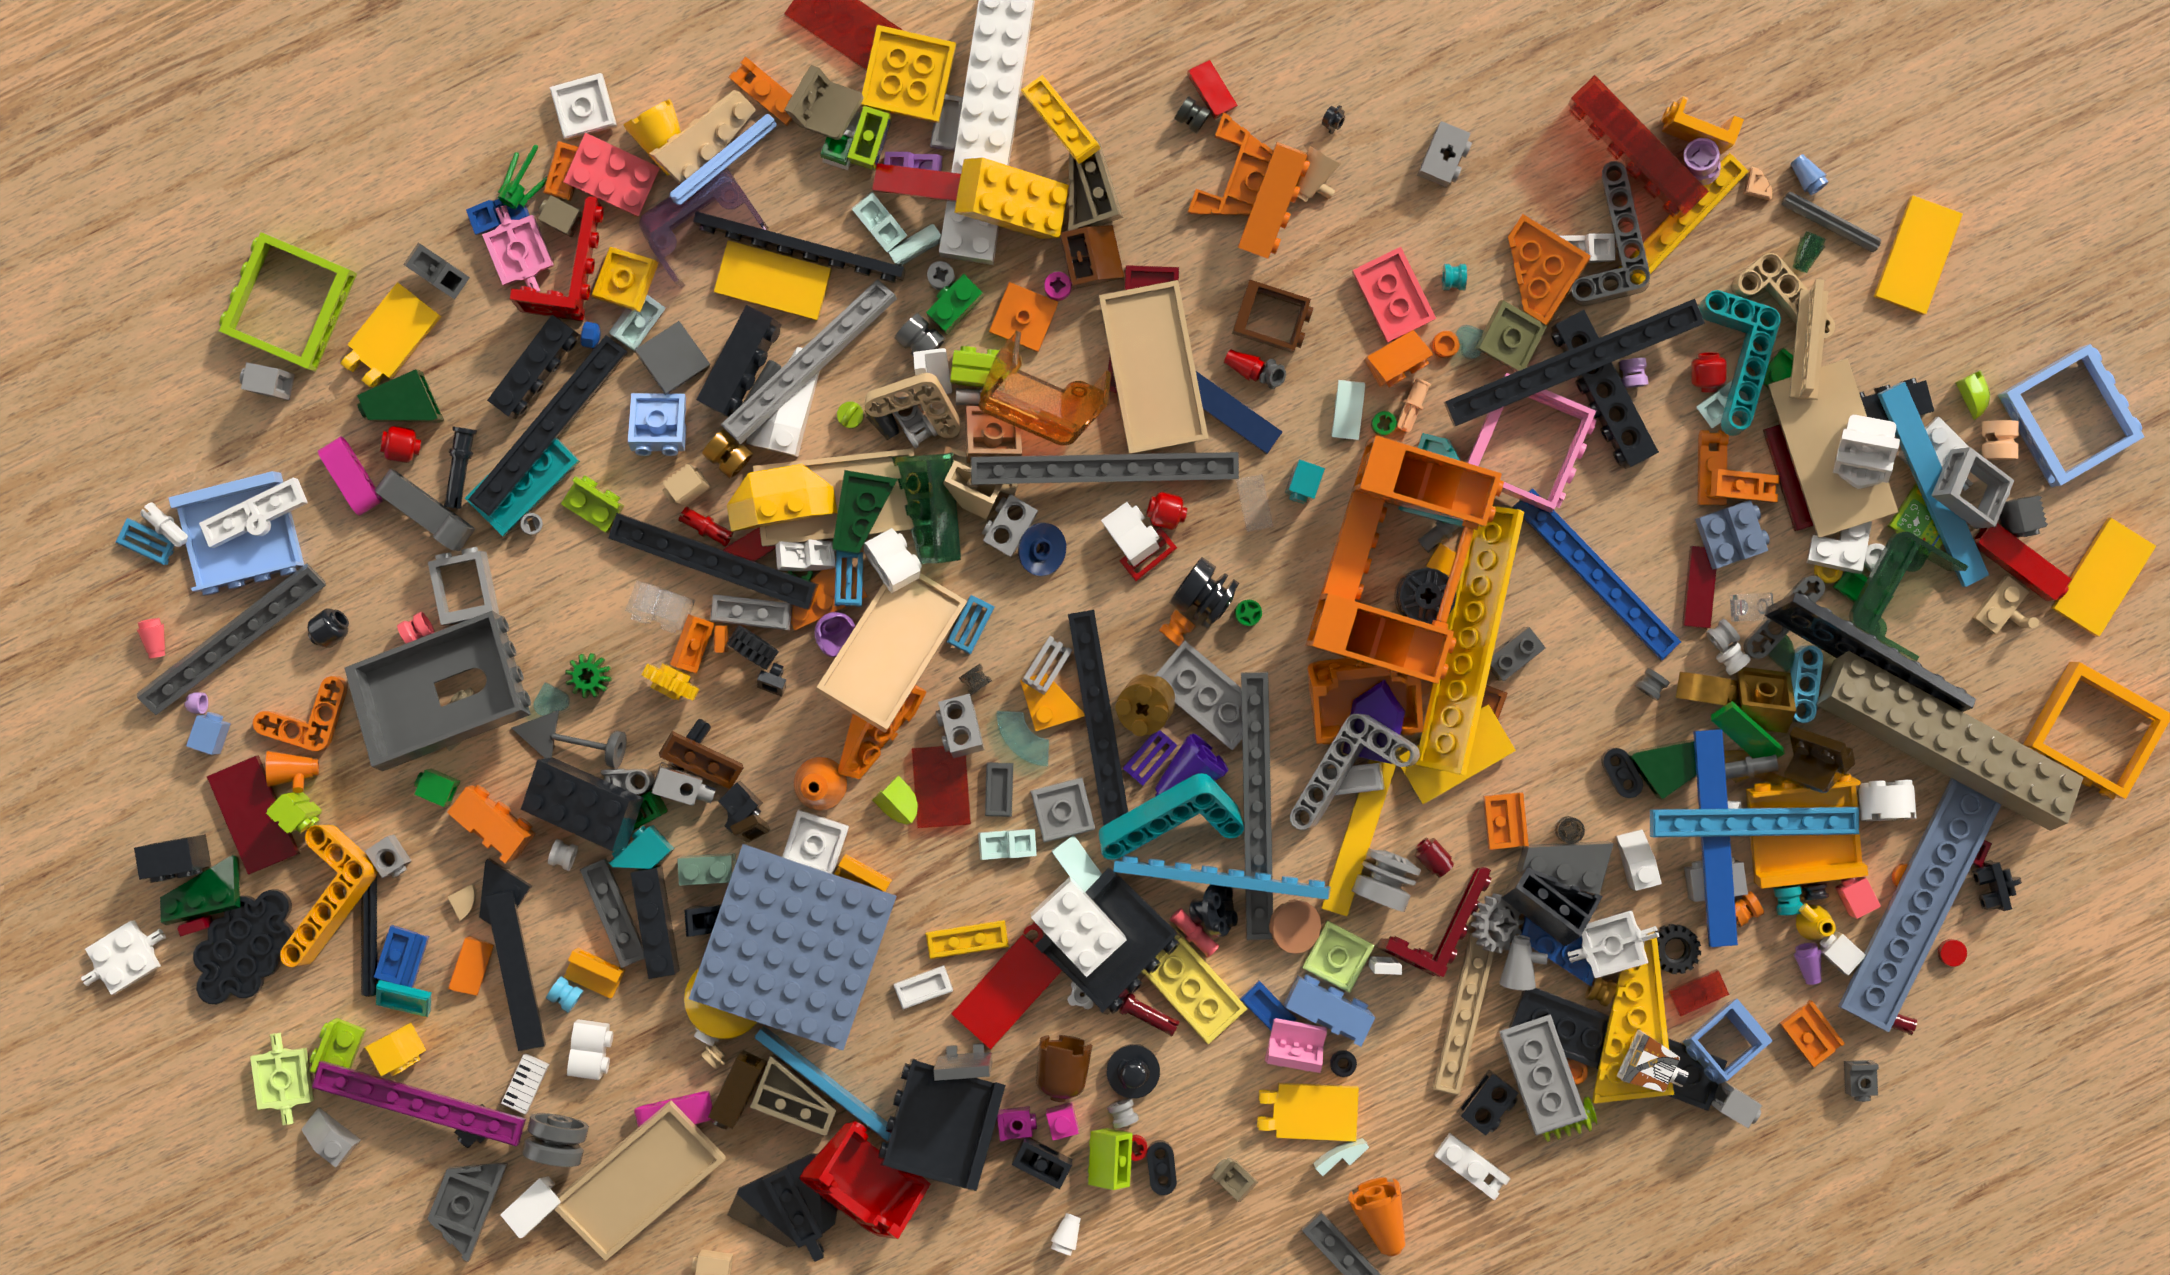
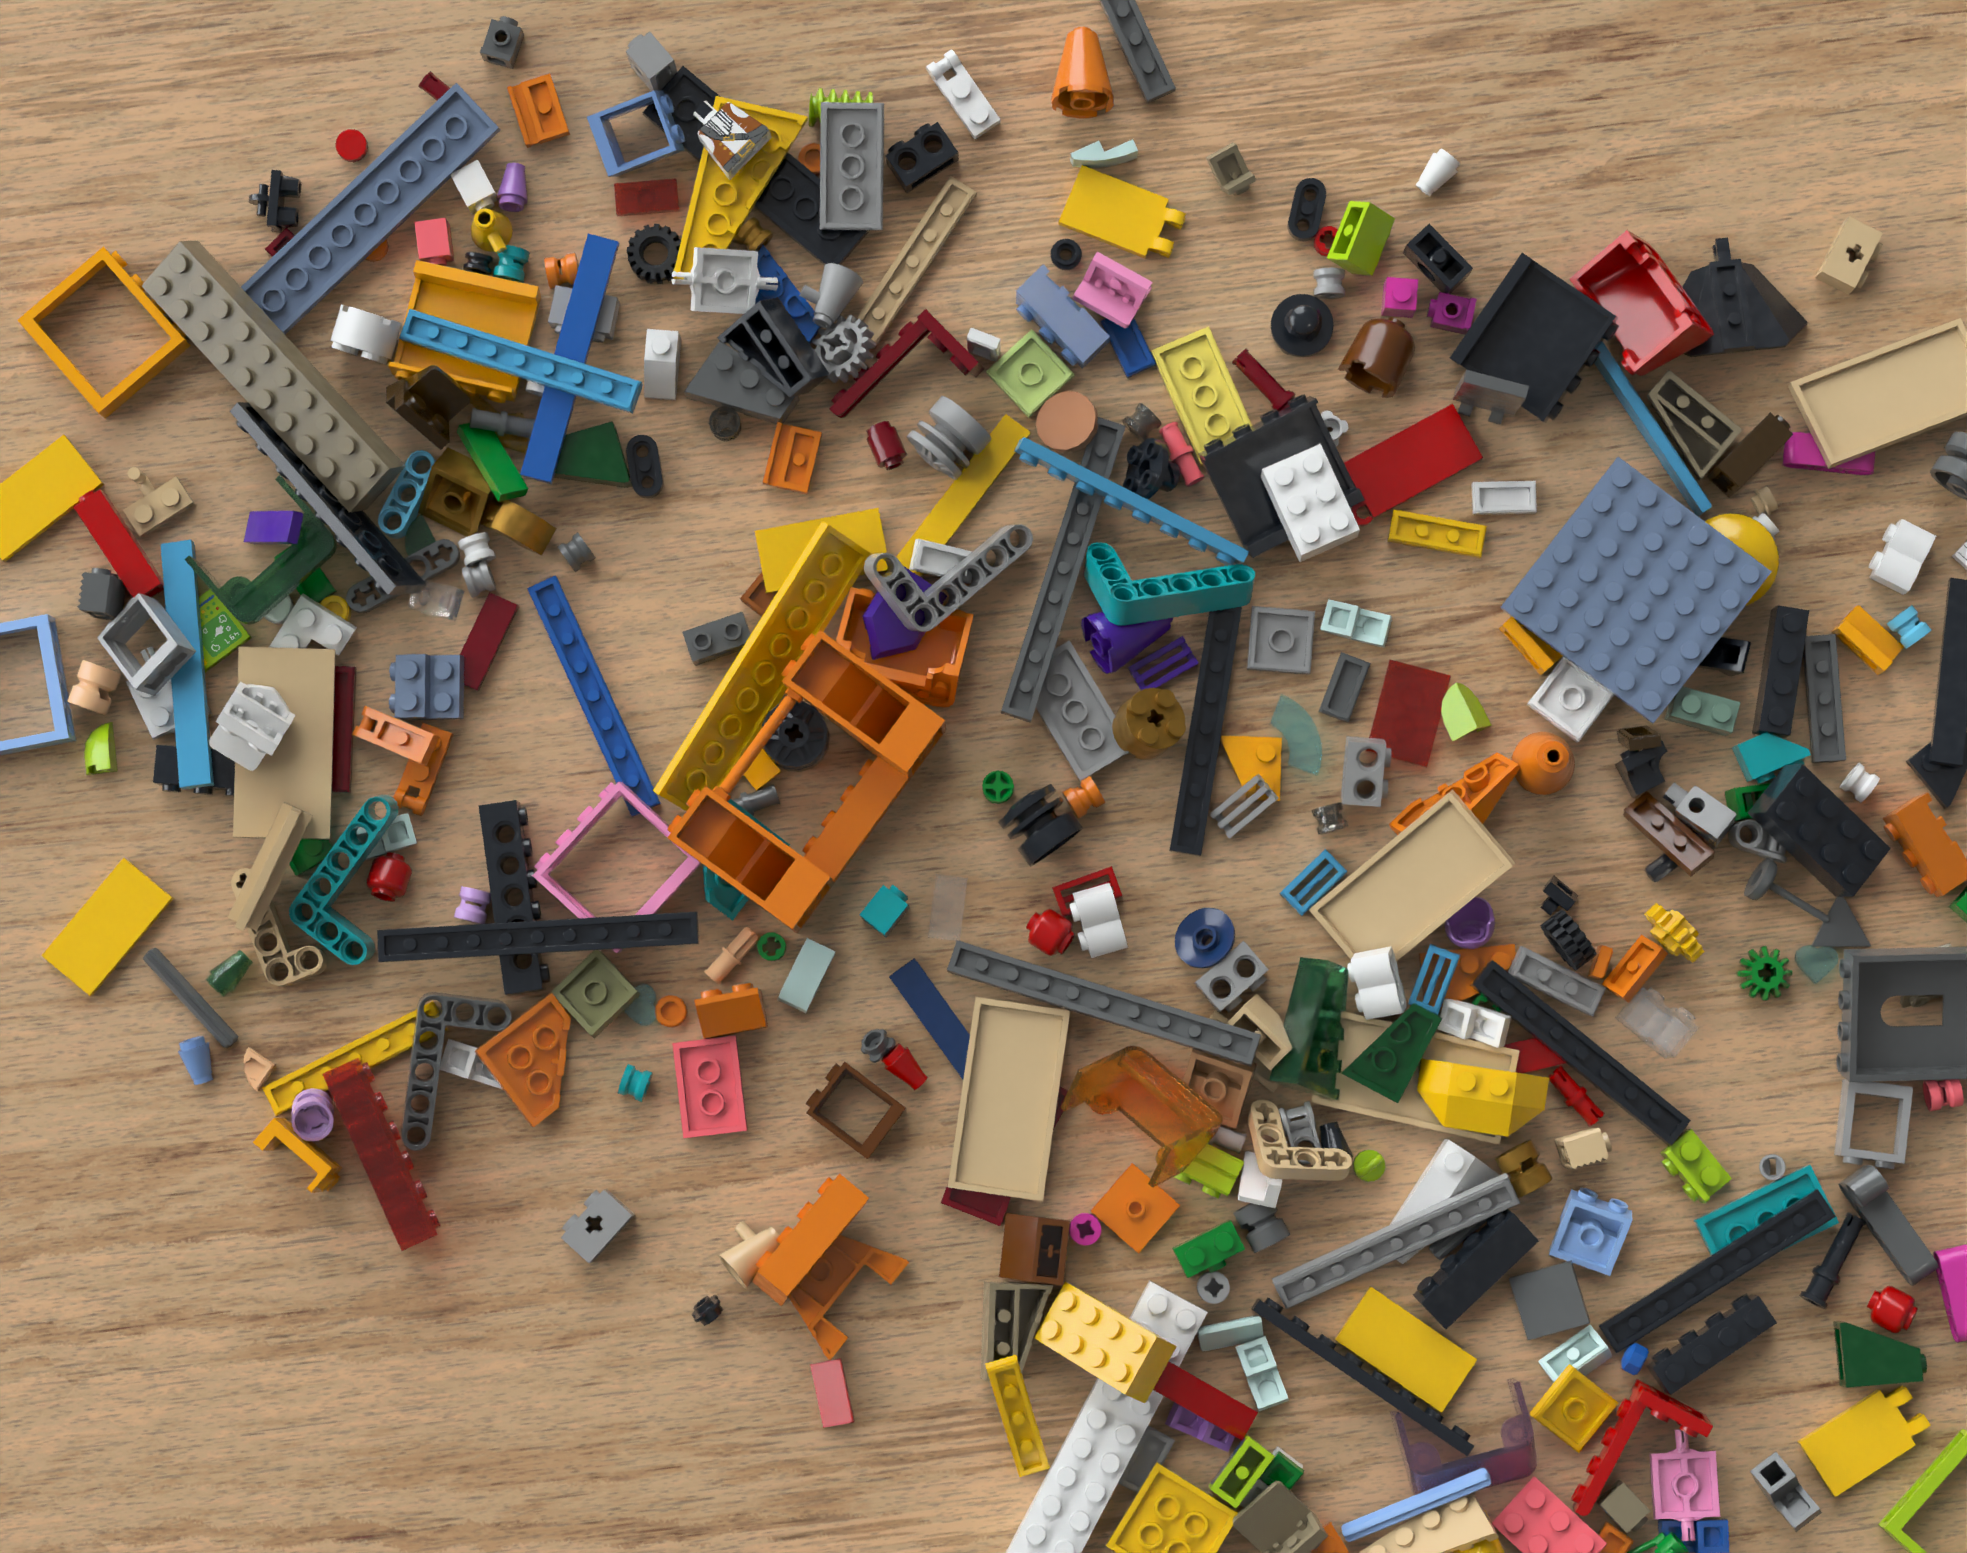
camera: 155 degrees left, 5 degrees down
(1077, 863) = (1285, 575): light aqua slope -> none
(1192, 114) = (865, 1370): pearl dark grey wheel -> none
(1234, 947) = (1142, 422): none -> clear smoke wheel
(1904, 617) = (273, 527): none -> dark purple tile

